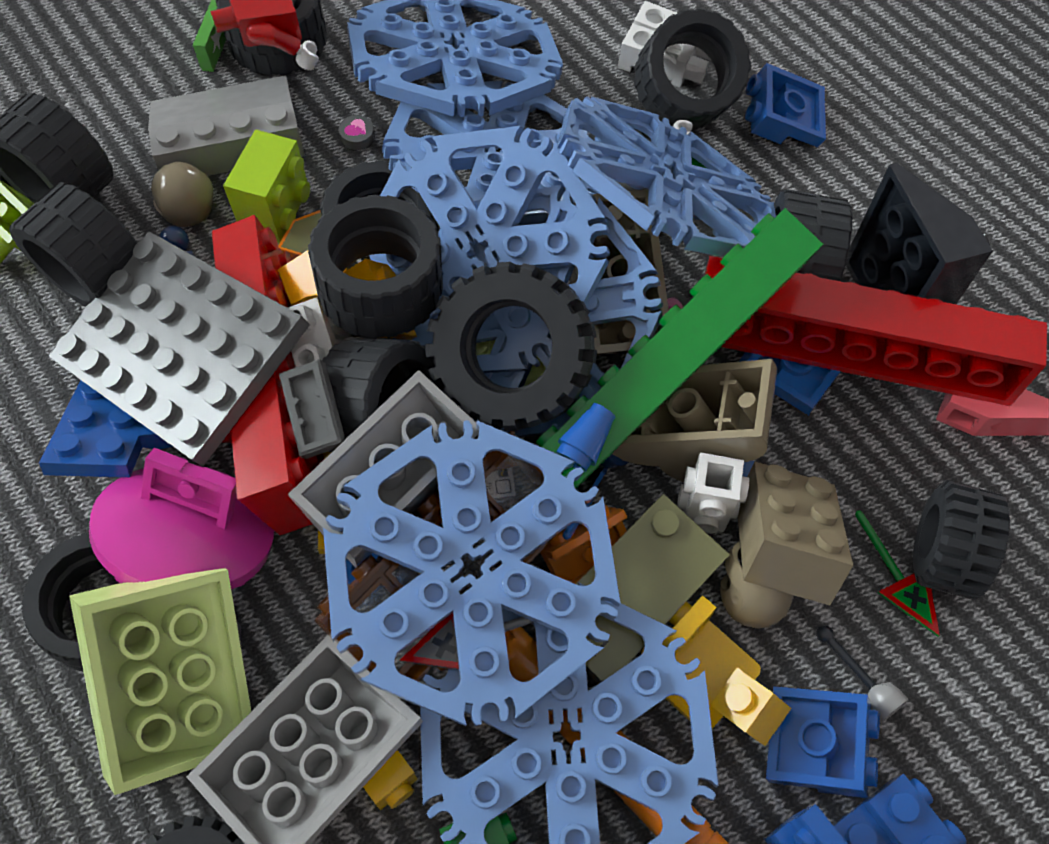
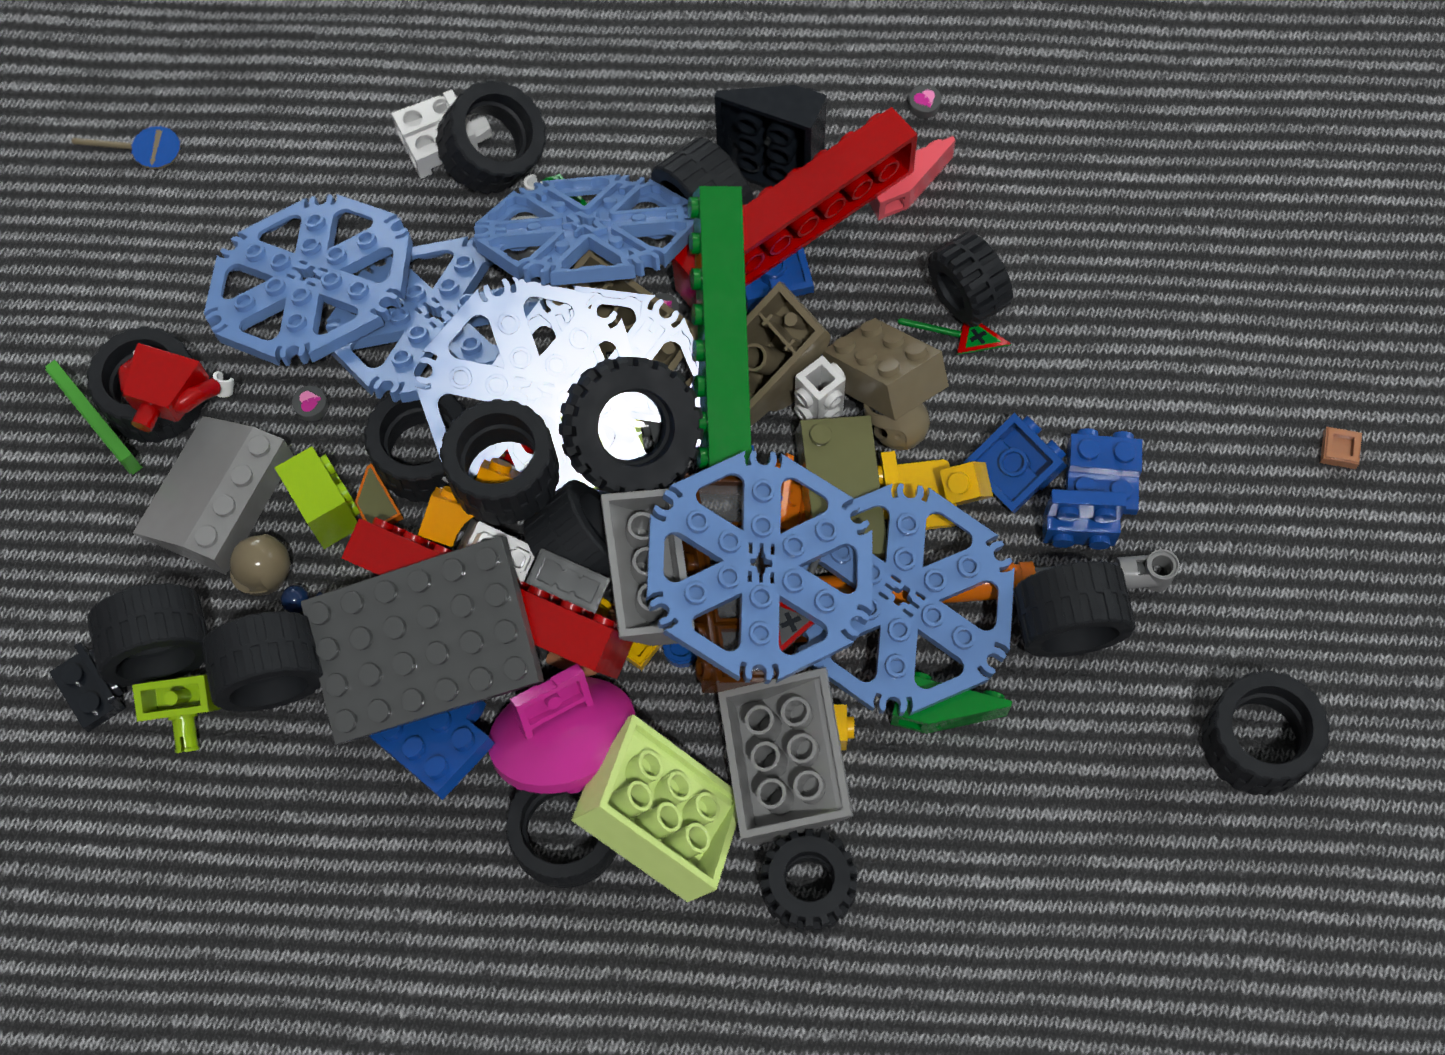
camera: 45 degrees left, 5 degrees up
(586, 437) = (732, 431): blue cone -> none
(786, 107) = (571, 99): blue plate -> none
(882, 696) = (1020, 404): hinge -> none

